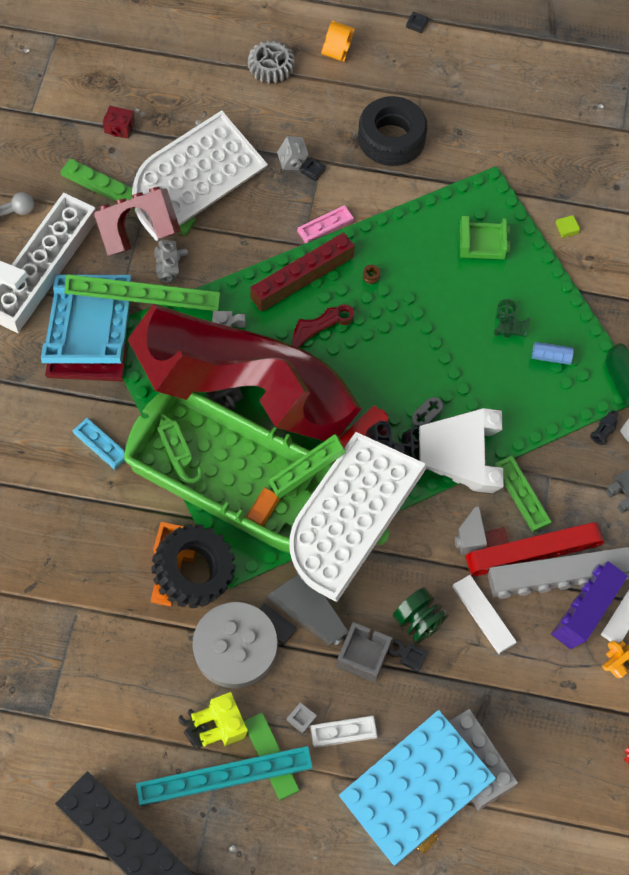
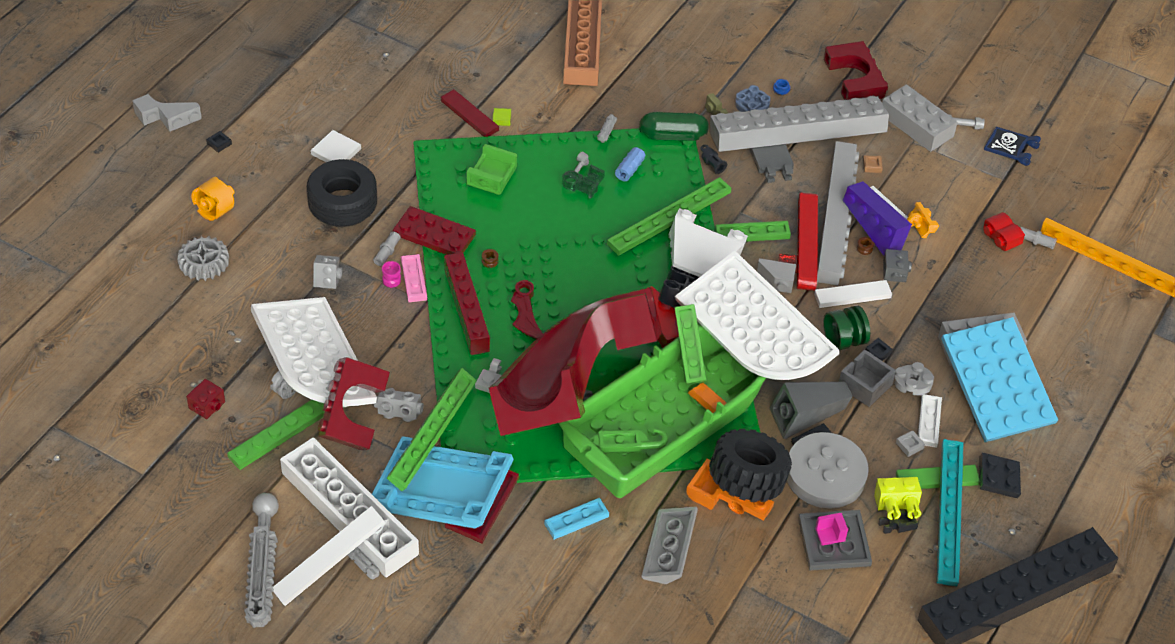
camera: 70 degrees left, 15 degrees down
(95, 527) = (669, 544): none -> light grey slope
(153, 674) = (846, 554): none -> dark grey plate
(154, 665) = (831, 529): none -> dark pink panel
(294, 818) = (999, 475): none -> black plate
(313, 169) = (349, 267): black tile -> none
(317, 204) = (391, 274): none -> dark pink wheel
(348, 191) = (386, 248): none -> light grey pin
(383, 220) = (434, 231): none -> dark red plate
(393, 691) = (907, 375): none -> light grey plate
(424, 410) = (655, 264): dark grey beam -> none
(453, 110) = (335, 147): none -> white tile
(511, 415) = (664, 218): none -> bright green plate
(539, 312) = (583, 160): none -> light grey hand
(540, 646) = (896, 265): none -> dark grey head
(557, 198) = (469, 113): none -> dark red tile
(562, 605) = (865, 250): none -> reddish brown bush
(593, 318) = (607, 128): none -> light grey axle

